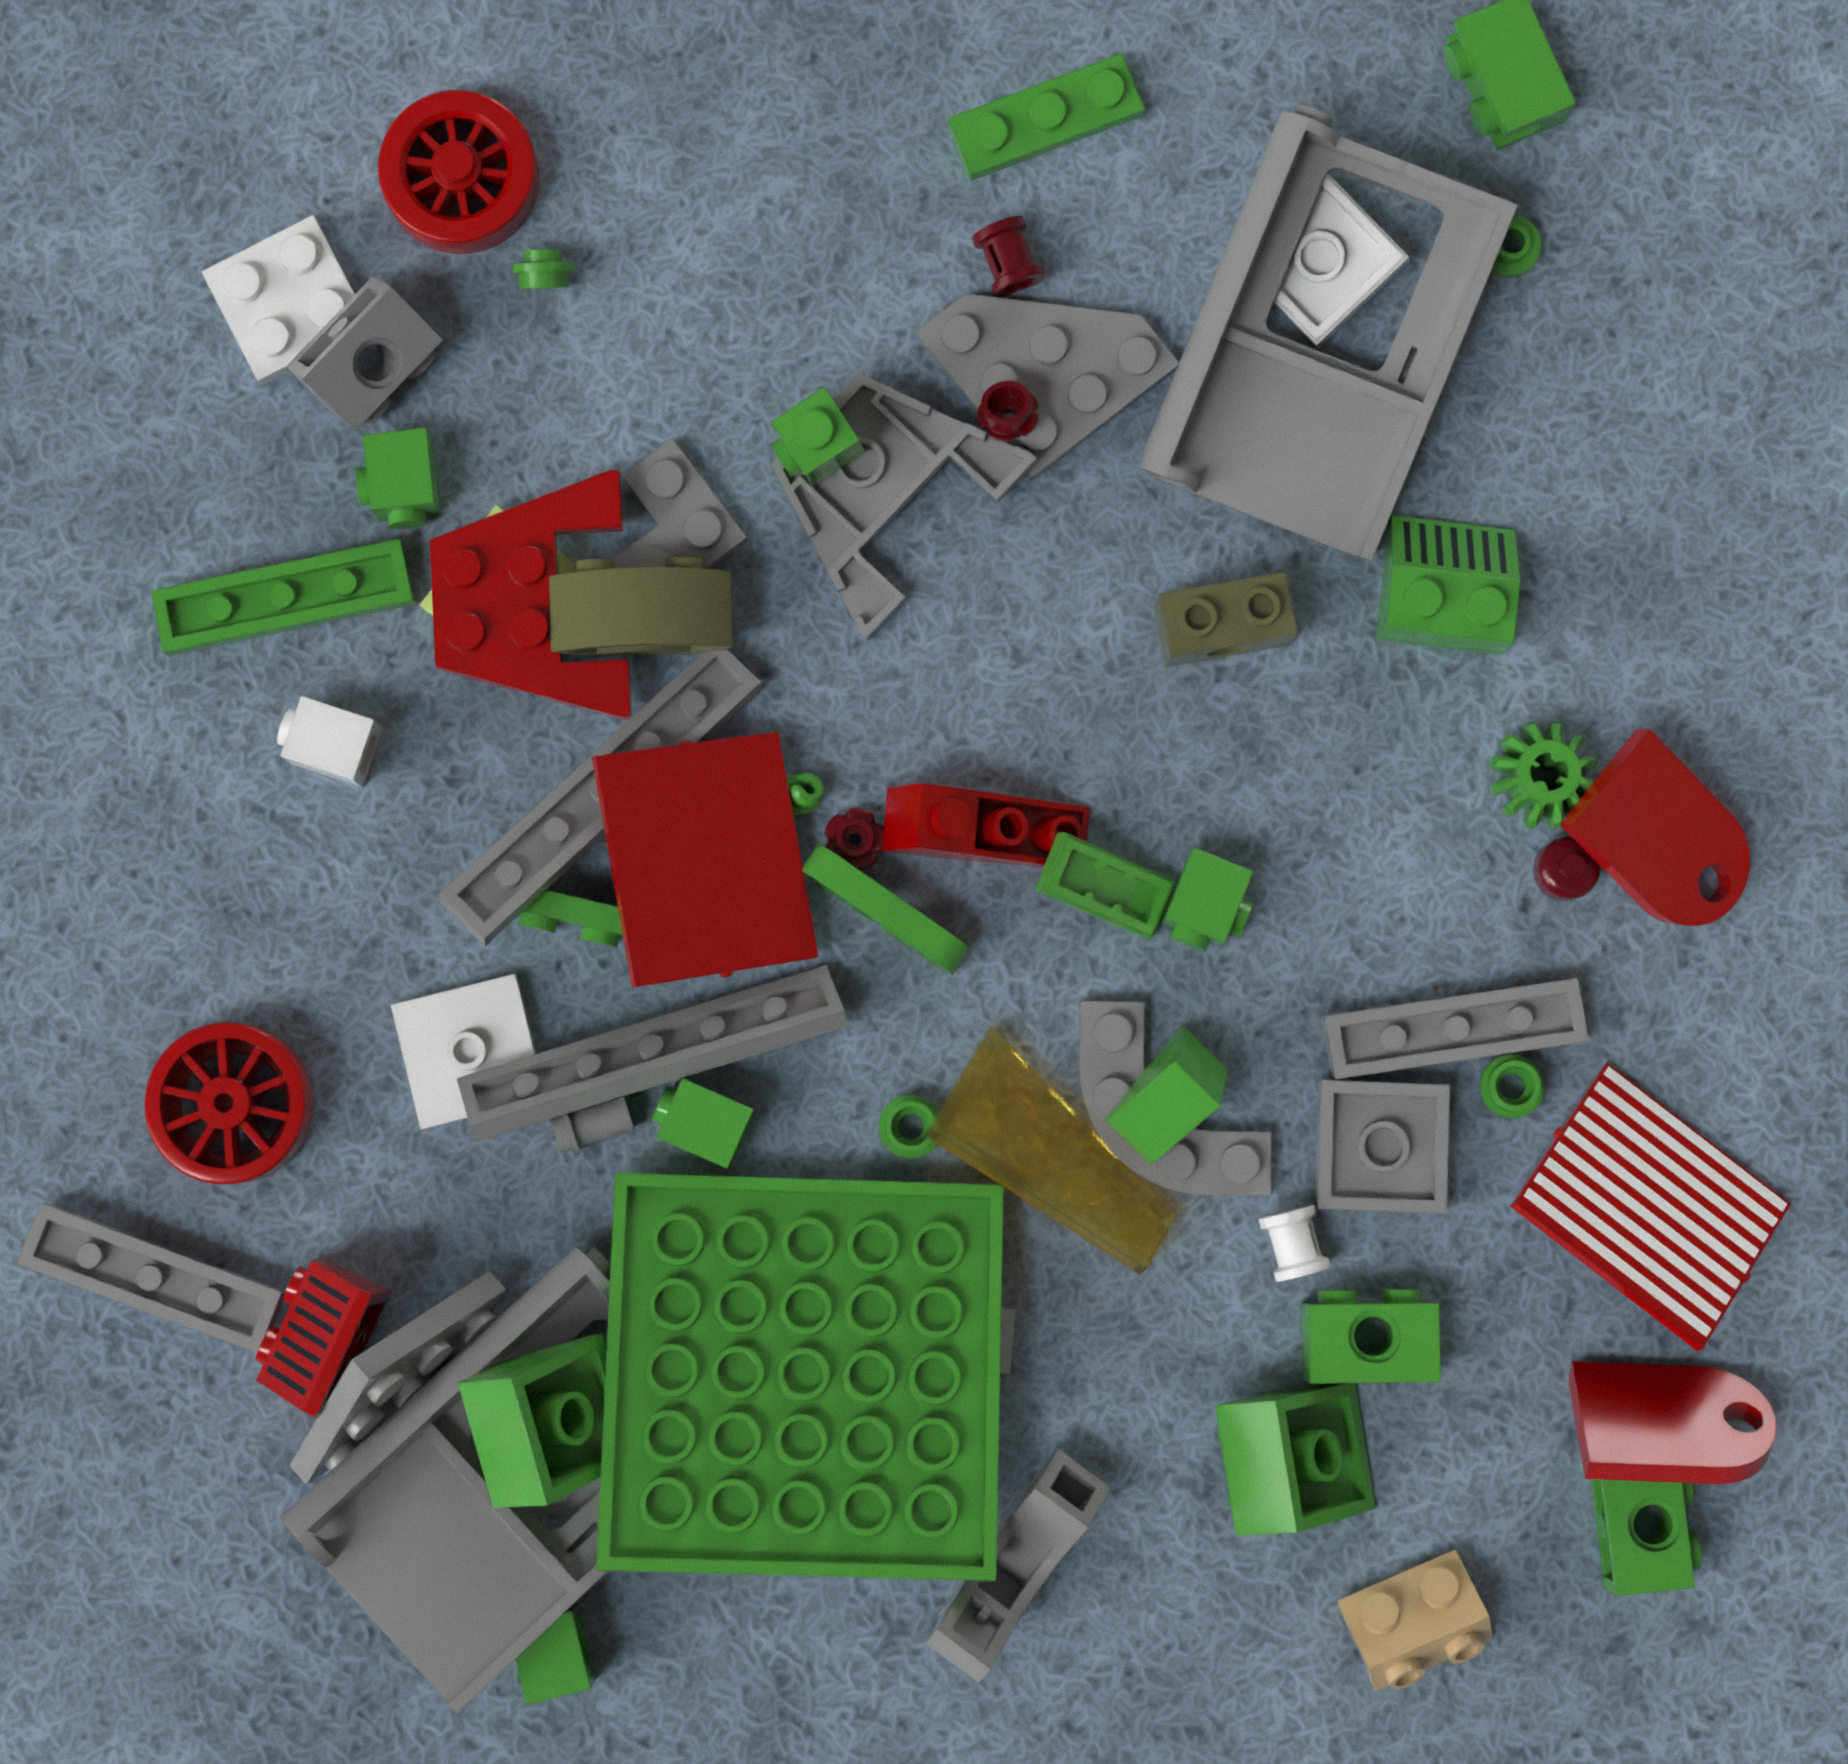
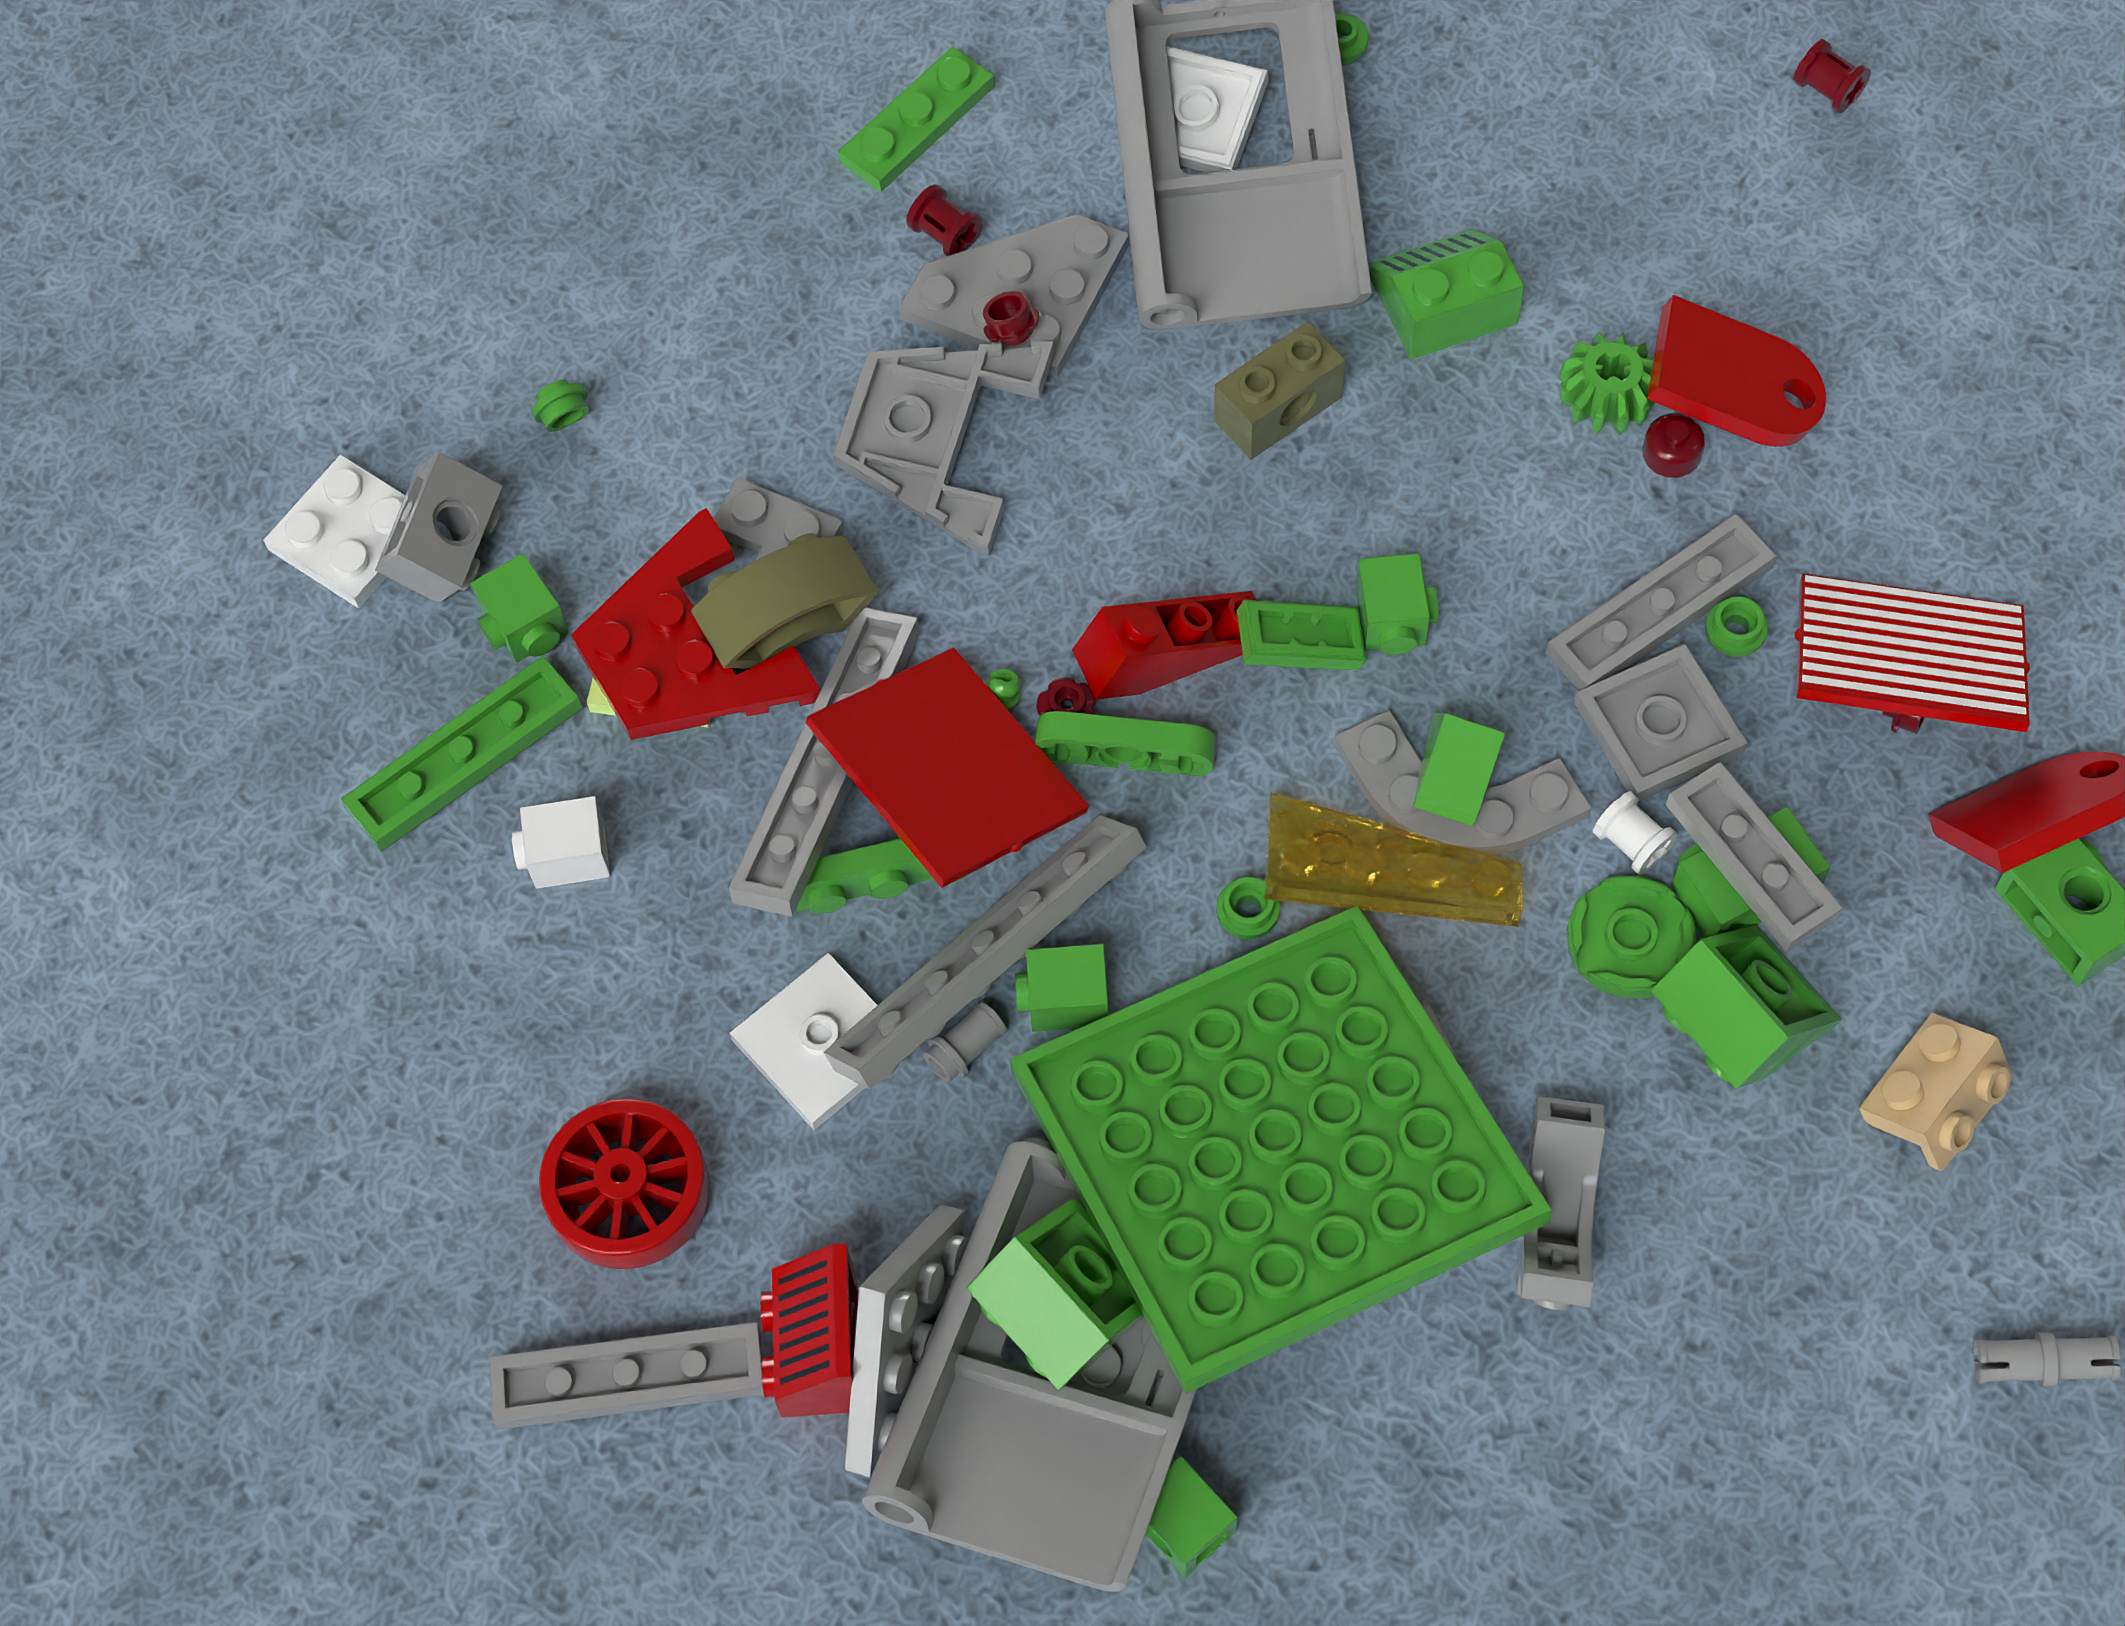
camera: 20 degrees left, 20 degrees down
(459, 173) = (431, 385): red wheel -> none
(815, 438) = (863, 401): bright green brick -> none
(1212, 1327) = (1626, 956): none -> bright green tile
(1372, 1344) = (1753, 856): none -> light grey plate

